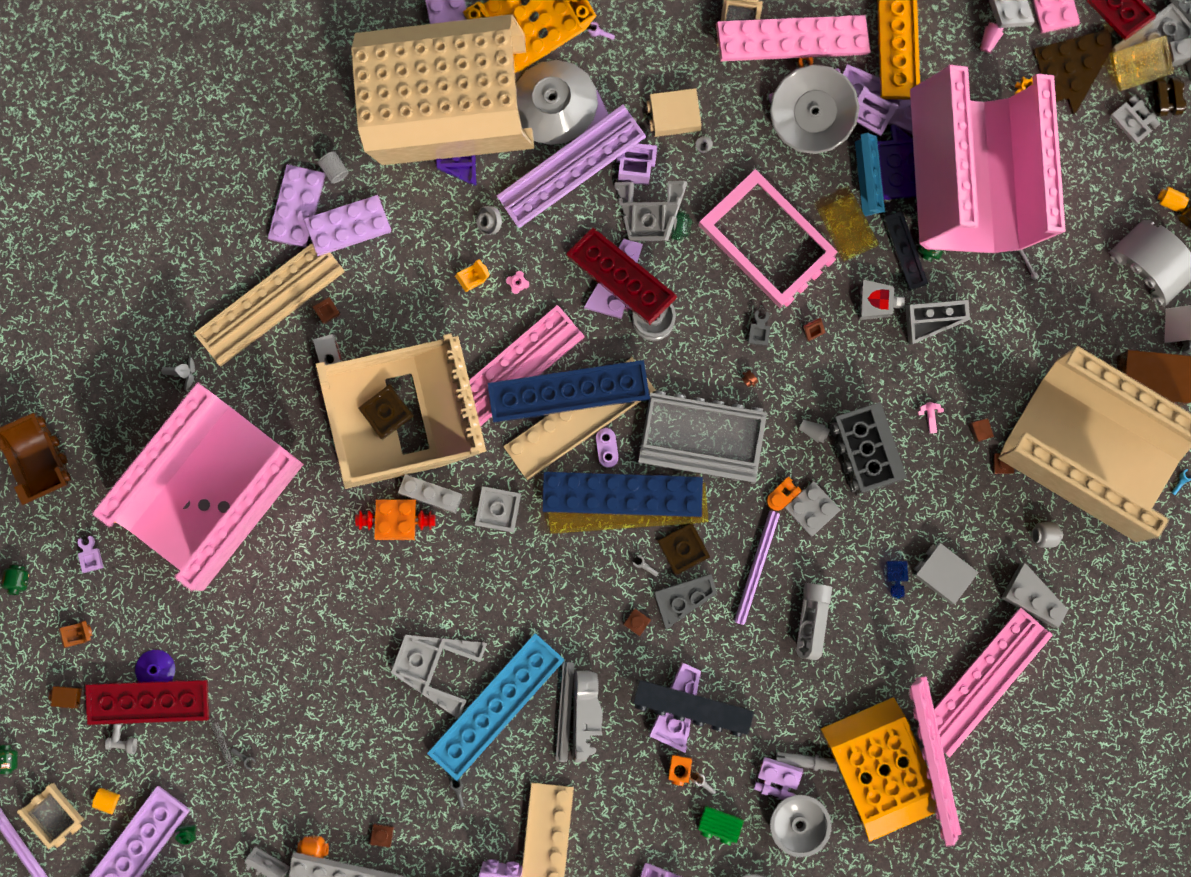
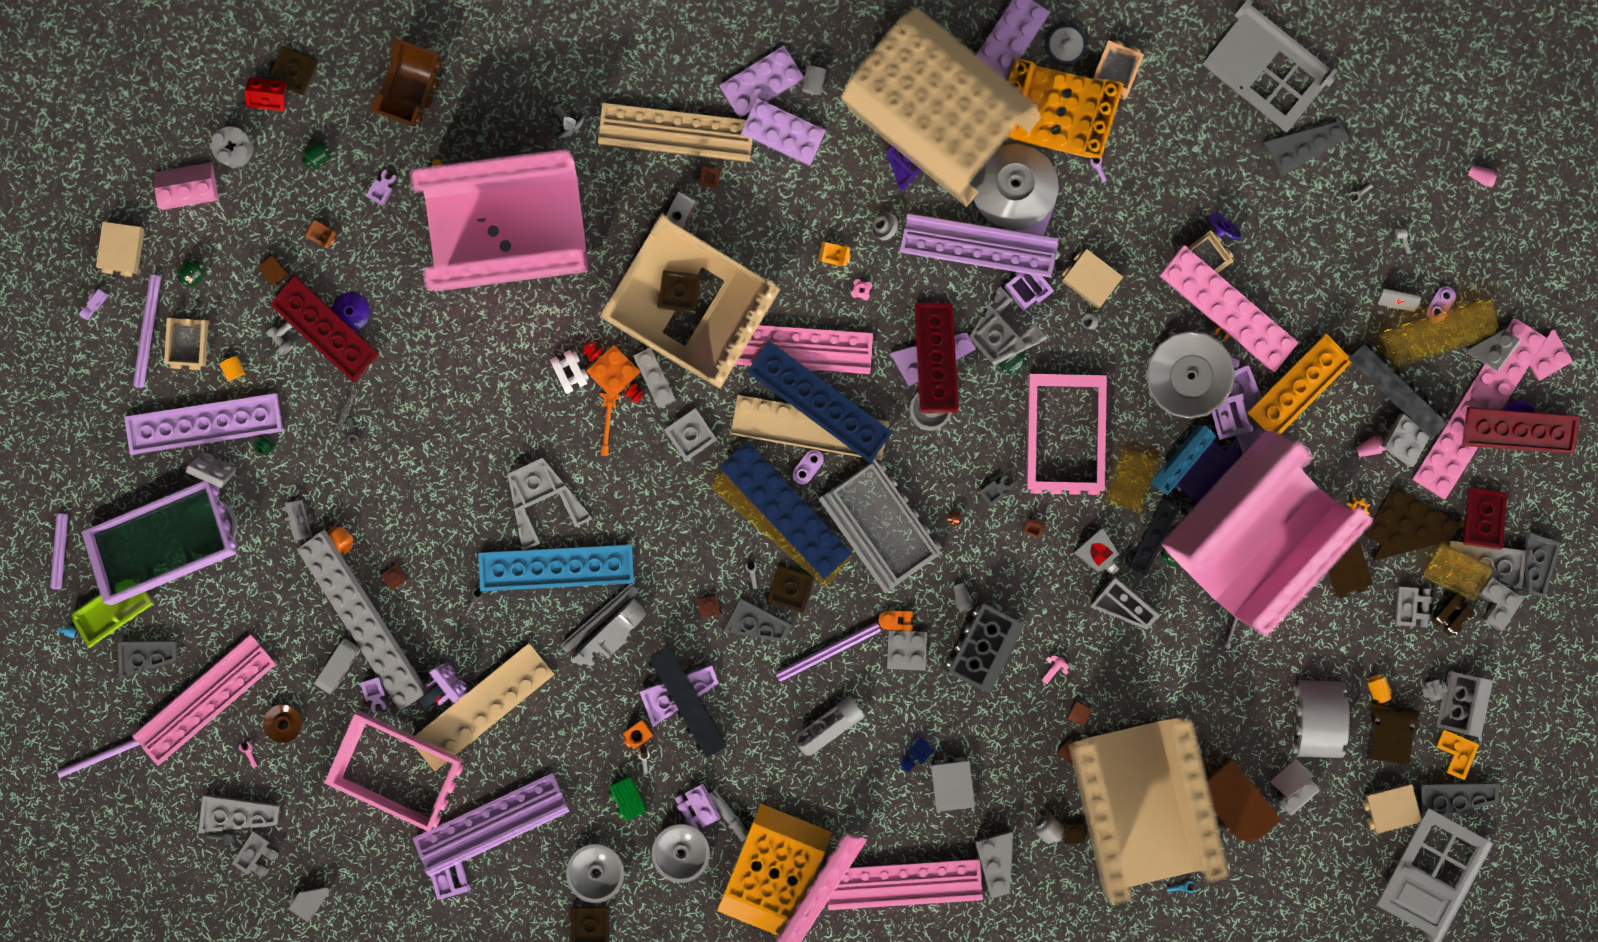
camera: 45 degrees right, 5 degrees up
(355, 541) = (579, 375): none -> white brick
(414, 545) = (609, 402): none -> orange piece
(1067, 520) = (1073, 833): none -> dark brown plate
(1072, 139) = (1350, 572): none -> dark brown panel

